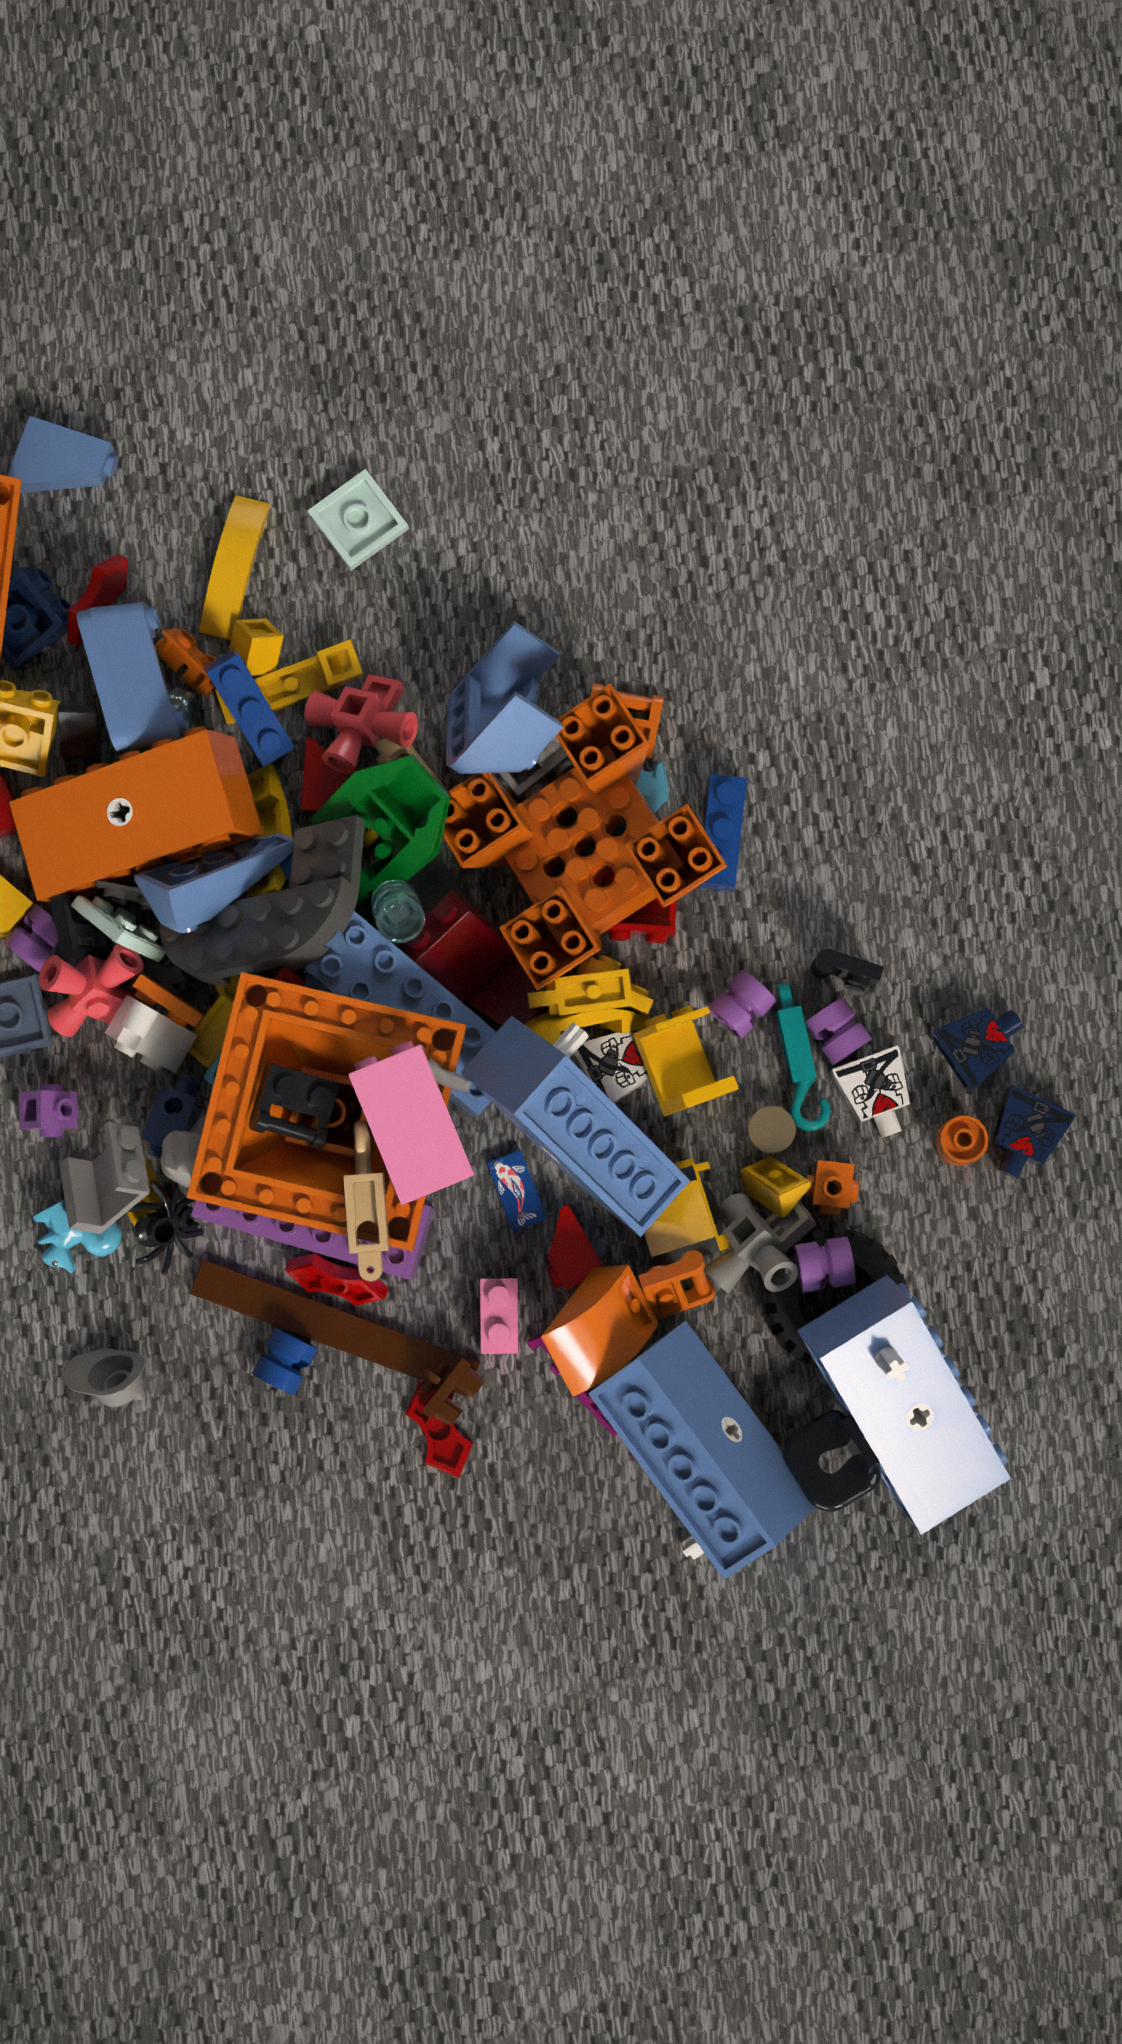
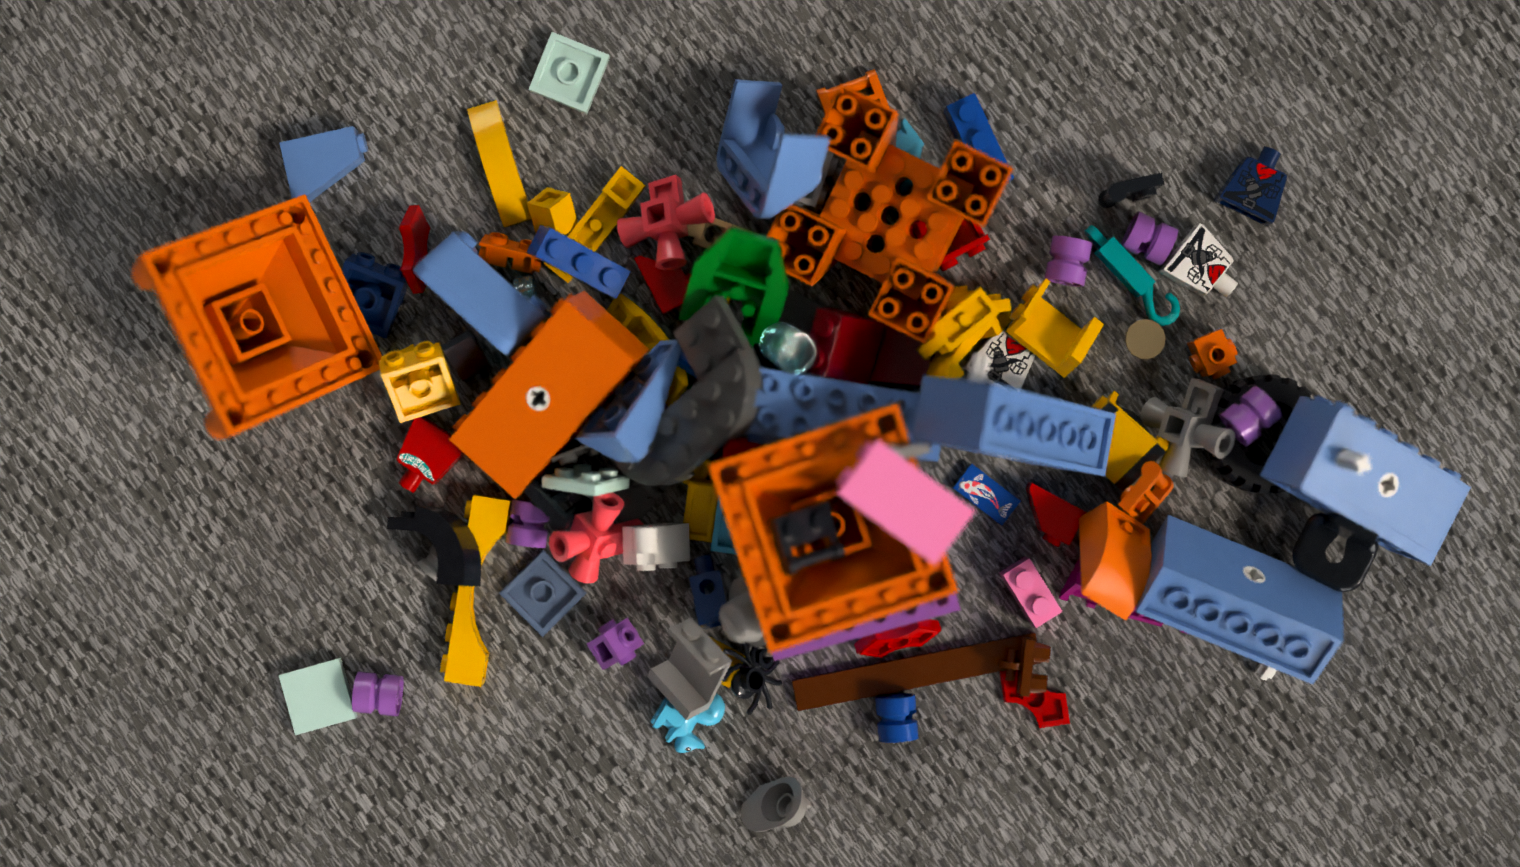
camera: 30 degrees left, 5 degrees up
(179, 1010) = (640, 513): orange plate -> none
(366, 1202) = (905, 578): tan piece -> none
(774, 1185) = (1172, 378): yellow slope -> none
(961, 1140) = (1286, 264): orange wheel -> none
(1028, 1130) = (1328, 227): dark blue torso -> none

